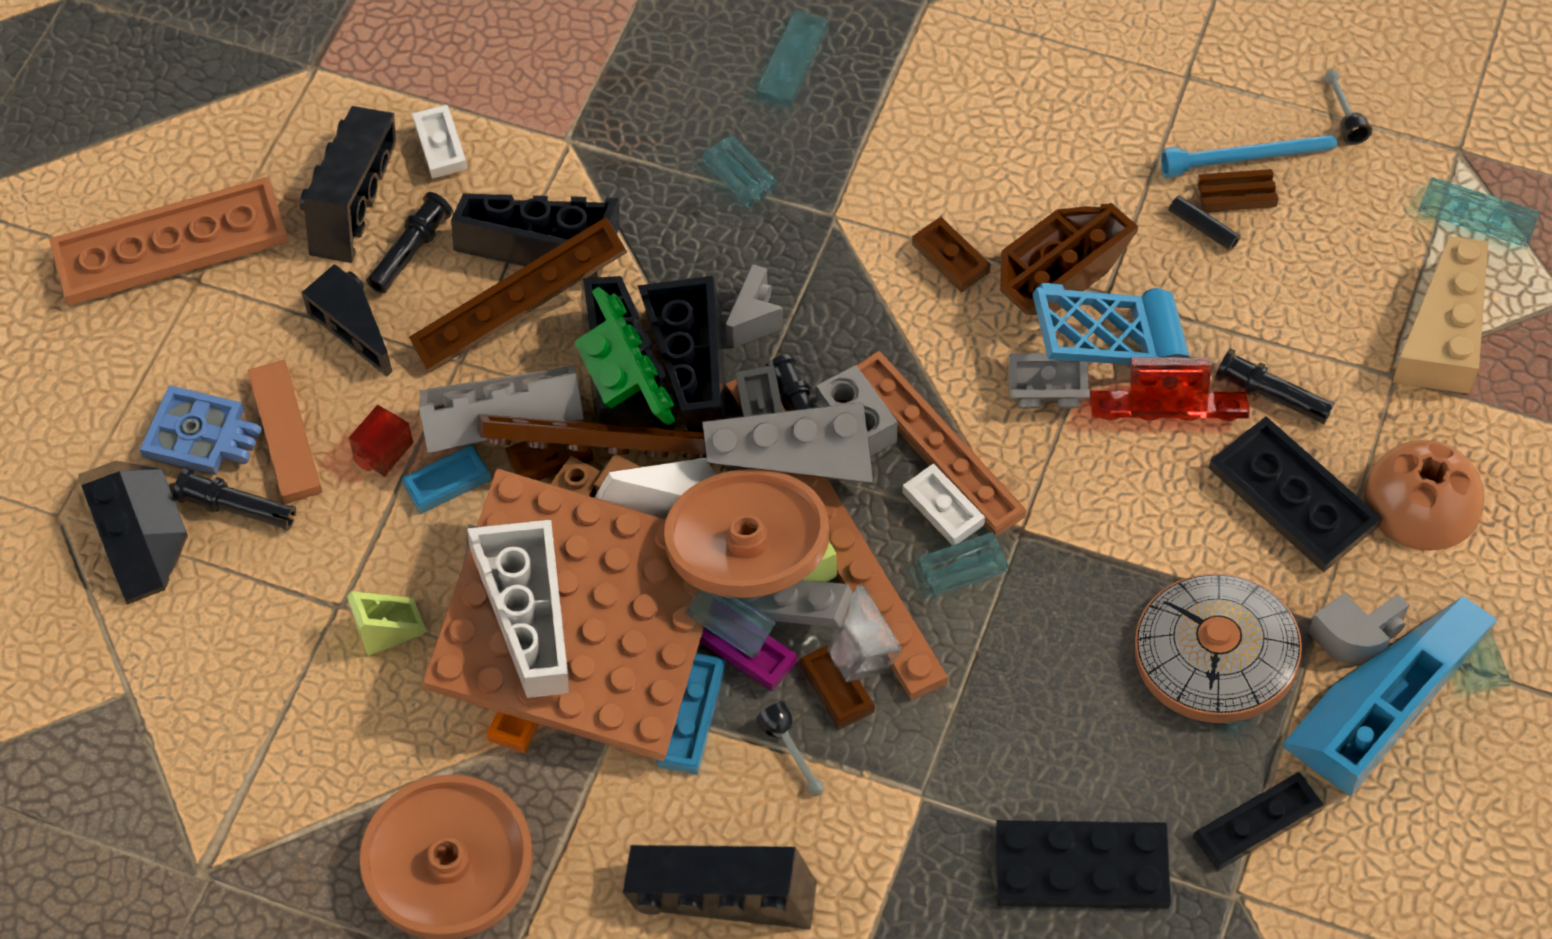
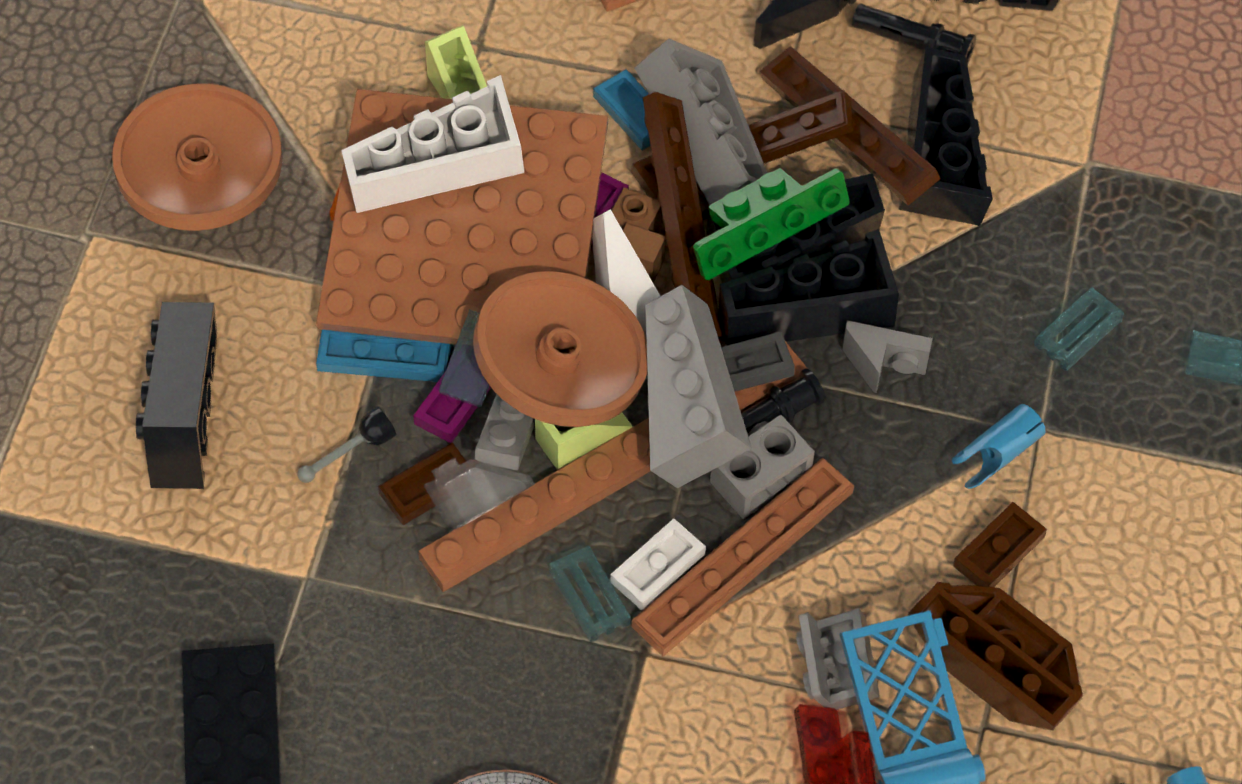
camera: 80 degrees right, 0 degrees up
(380, 441) = (657, 29): clear red brick -> none
(439, 141) = (1052, 42): white plate -> none
(512, 329) = (803, 126): none -> reddish brown tile
(853, 238) = (1003, 442): none -> dark azure piece

